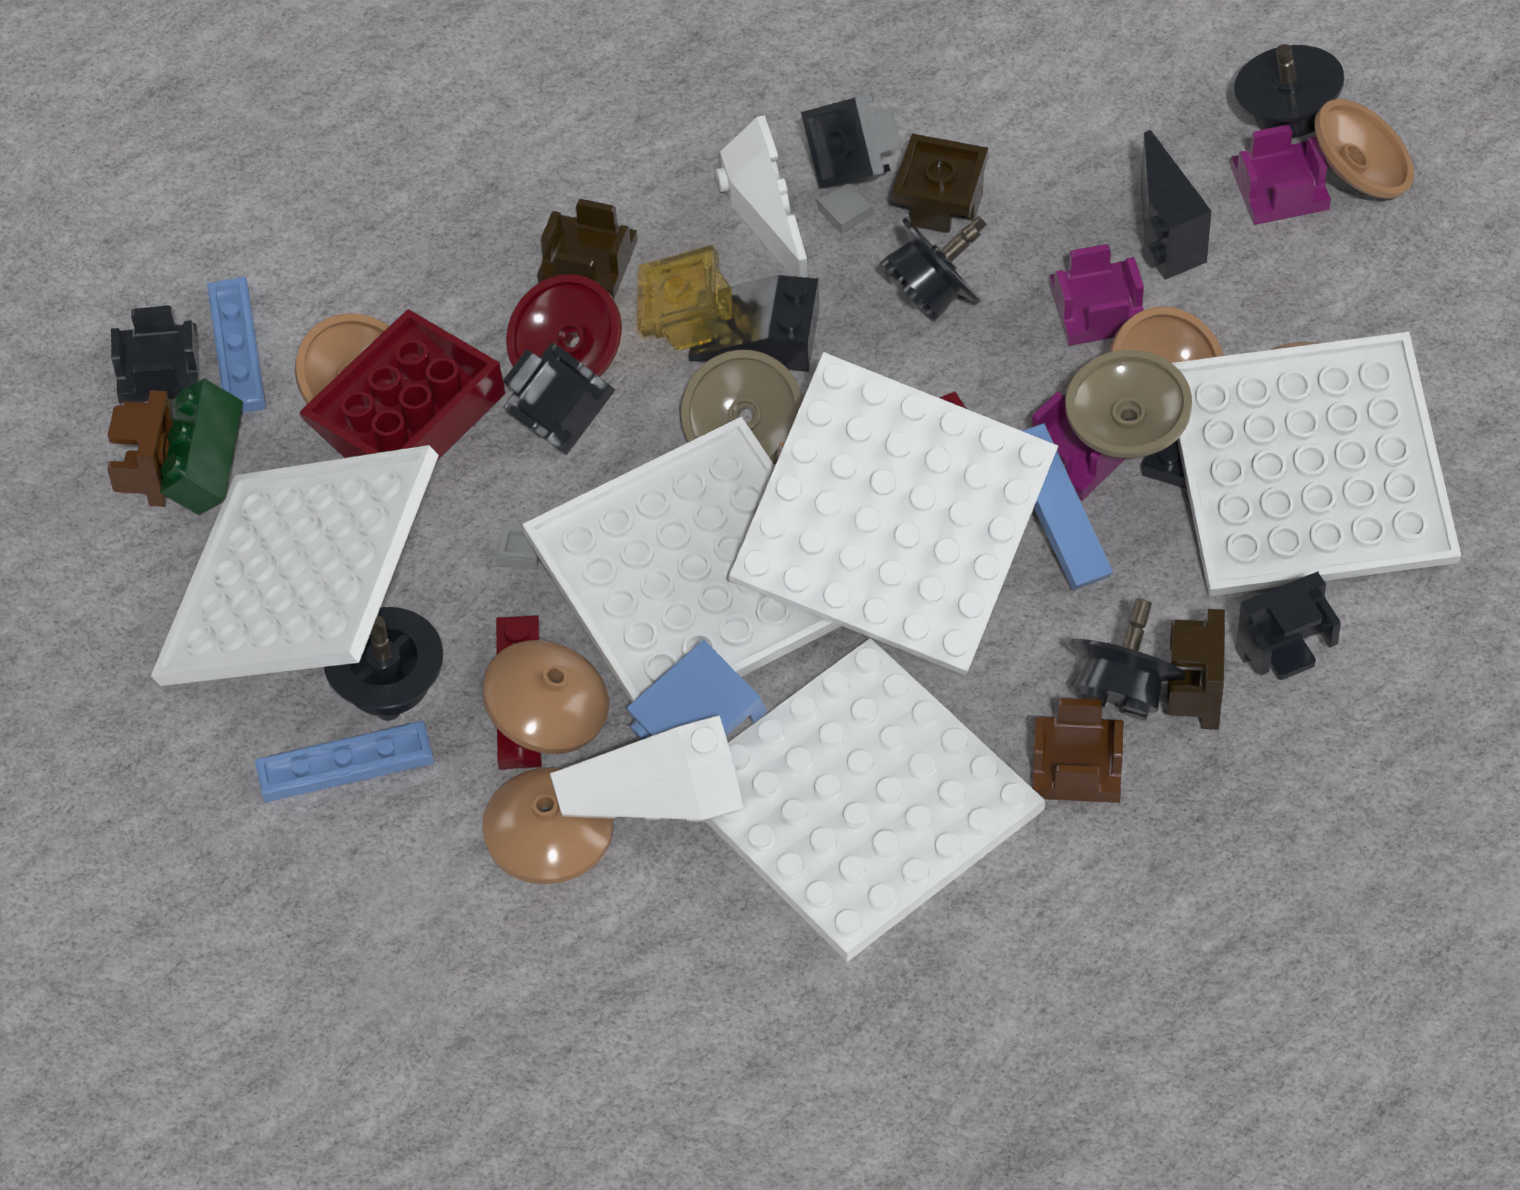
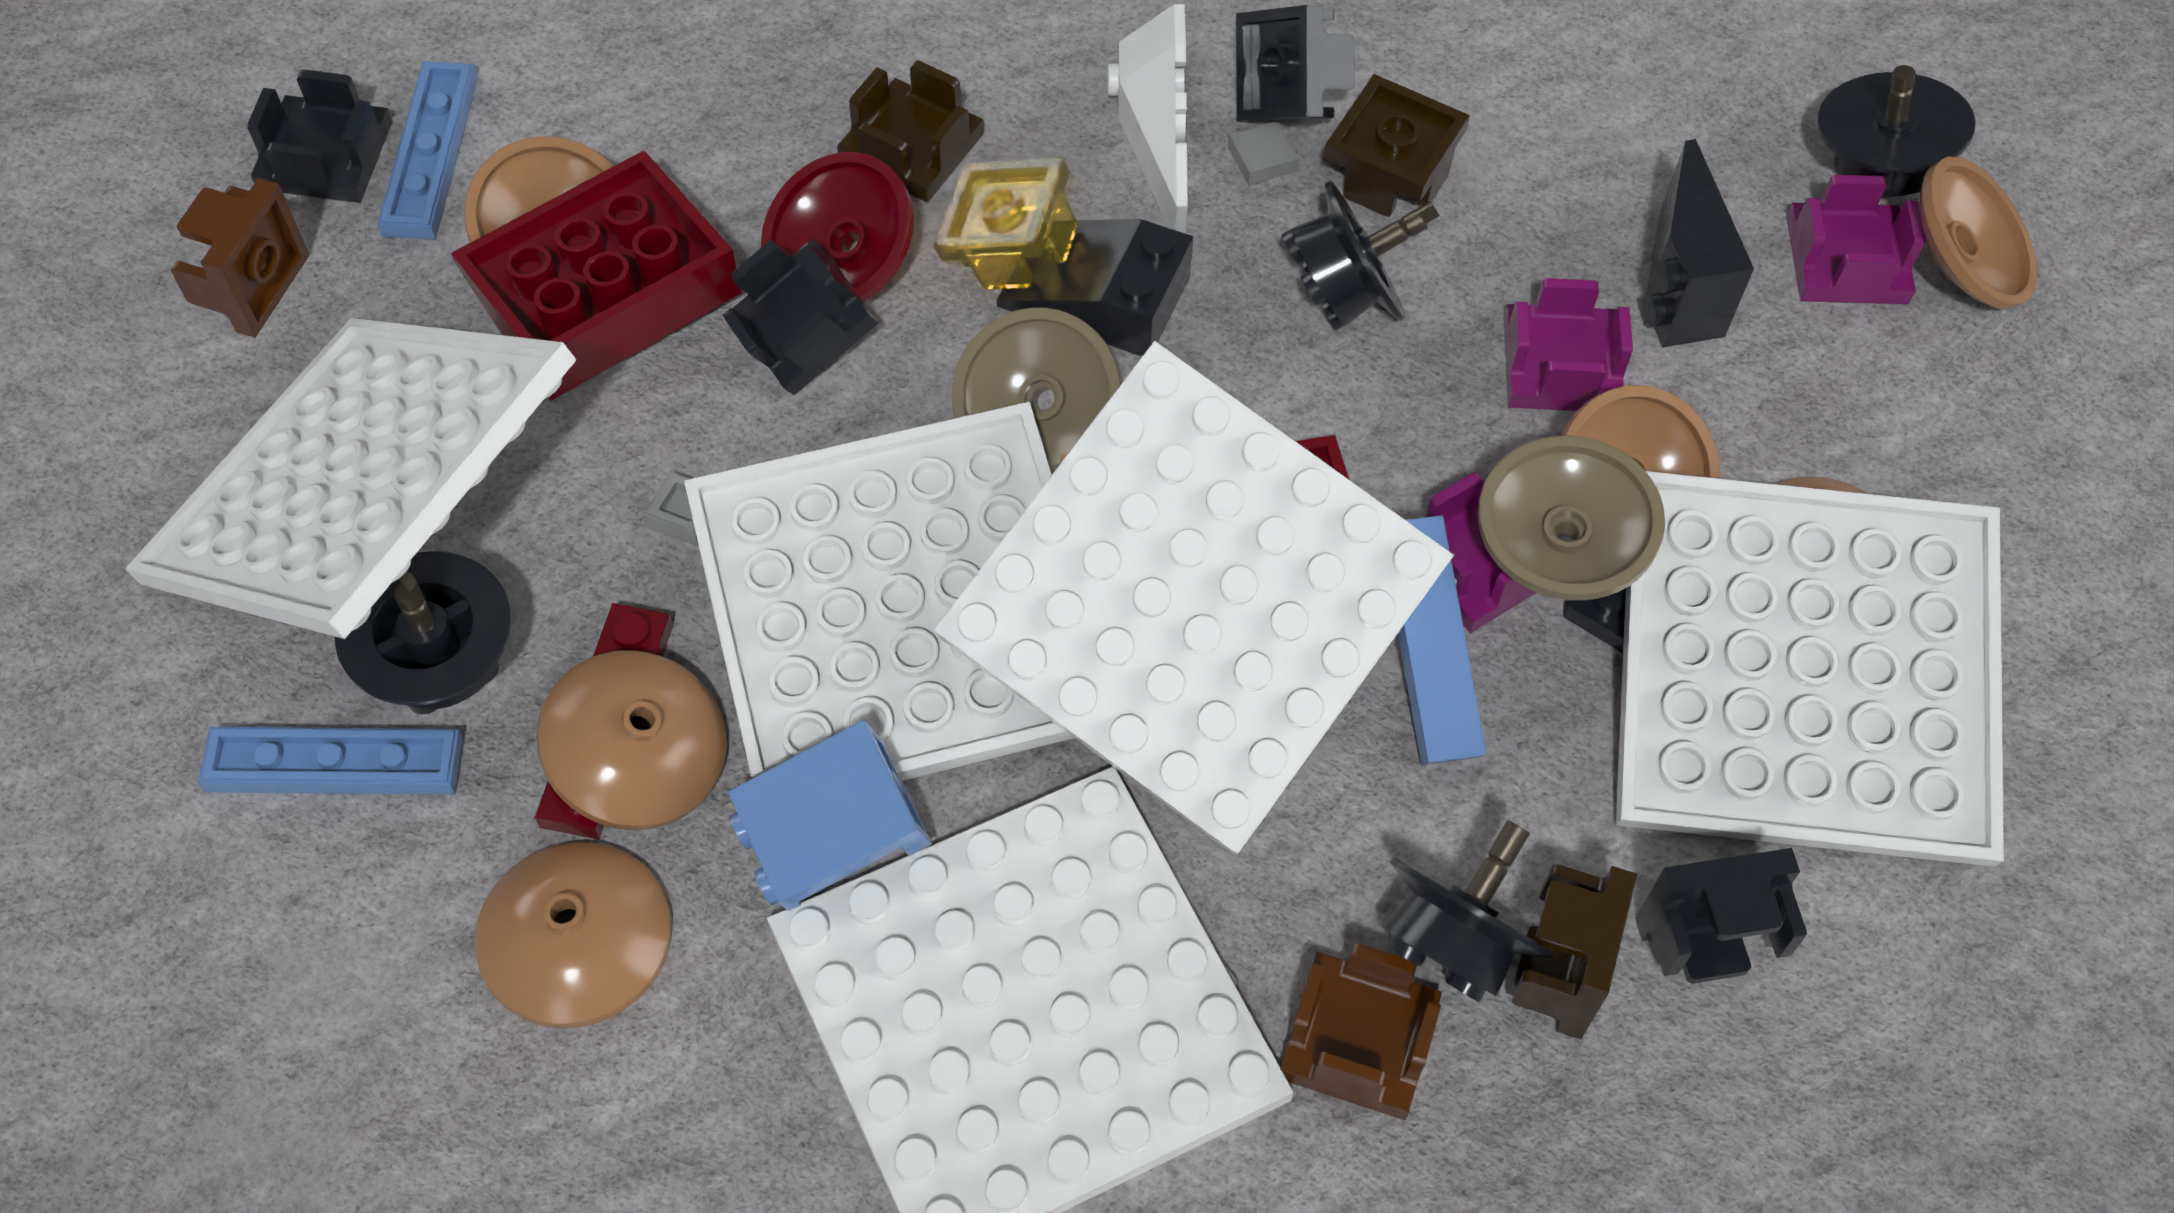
camera: 10 degrees right, 5 degrees up
(200, 446) = (315, 268): dark green brick -> none
(662, 777) = (742, 918): white wedge -> none

